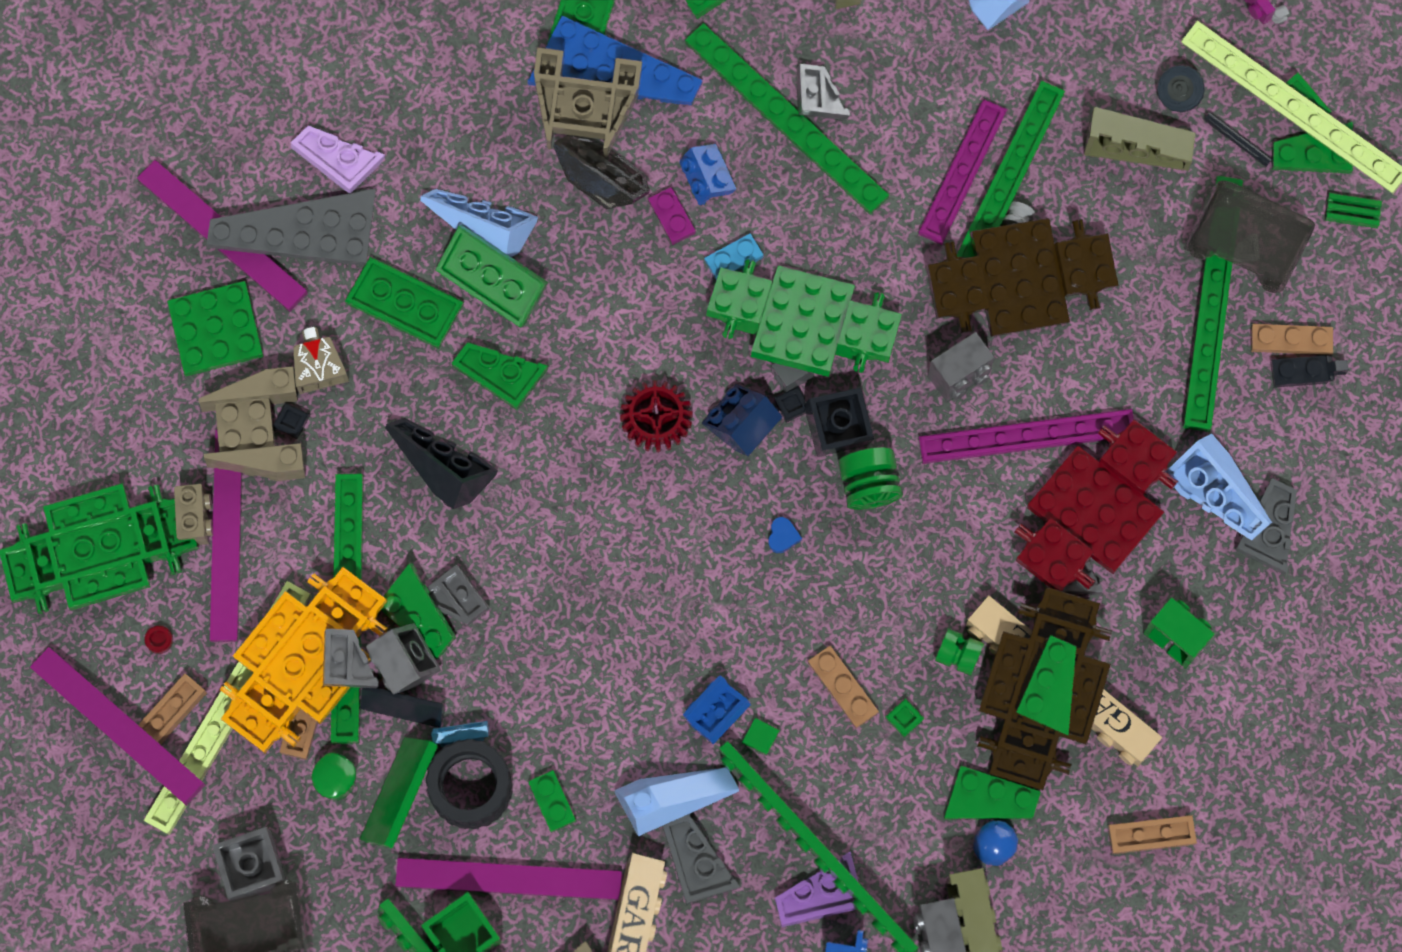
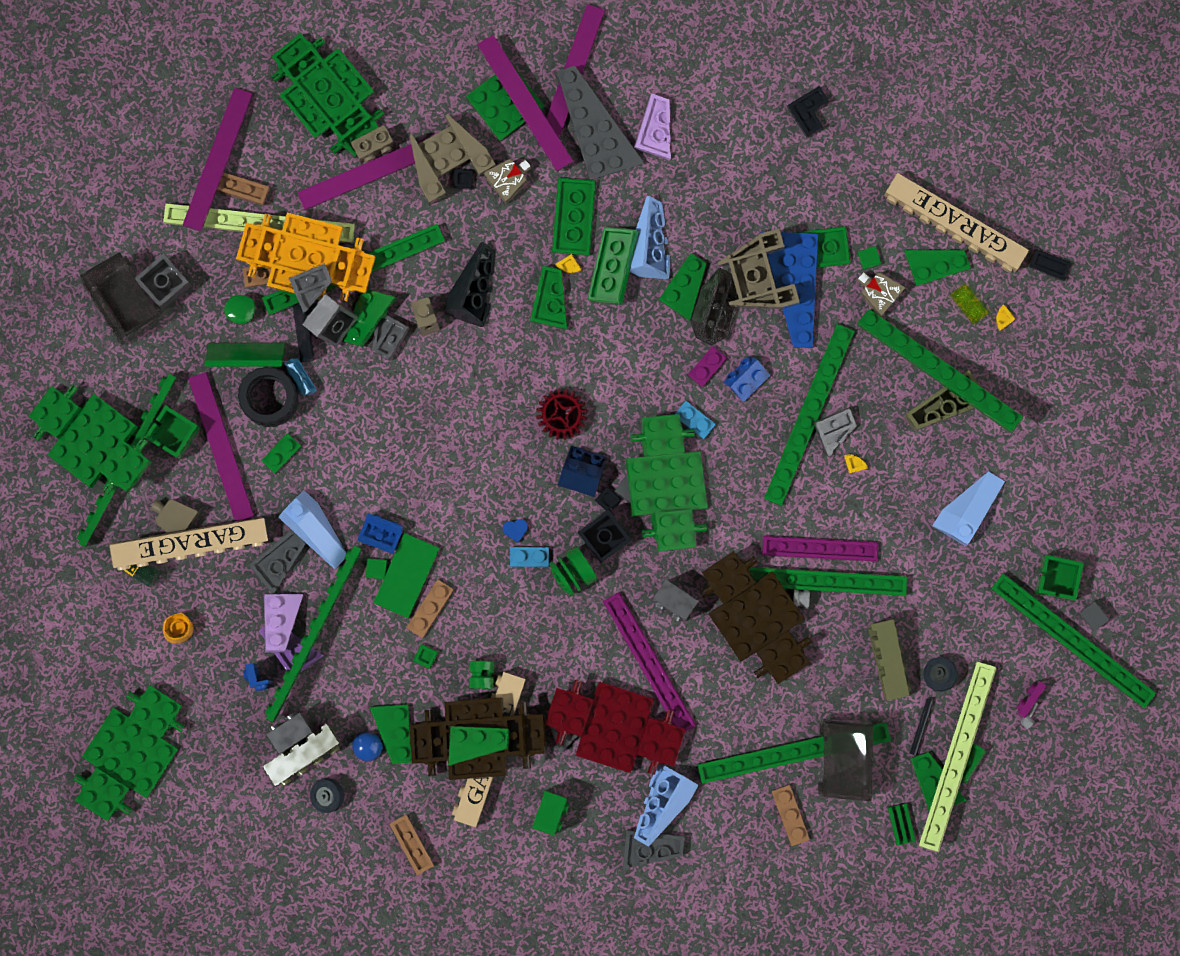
camera: 65 degrees right, 10 degrees up
(158, 639) = (285, 160): dark red tile -> none
(229, 300) = (525, 103): none -> magenta tile
(450, 536) = (425, 316): none -> dark tan torso
(464, 332) = (569, 265): none -> yellow tile
(557, 203) = (684, 287): none -> green wing
(779, 890) = (279, 618): none -> lavender wing
(786, 700) = (406, 575): none -> green tile
(826, 532) = (529, 556): none -> dark azure plate
(871, 89) = (854, 463): none -> yellow tile
(1043, 921) = (327, 795): none -> black wheel
(1306, 370) = (771, 832): black hinge -> none

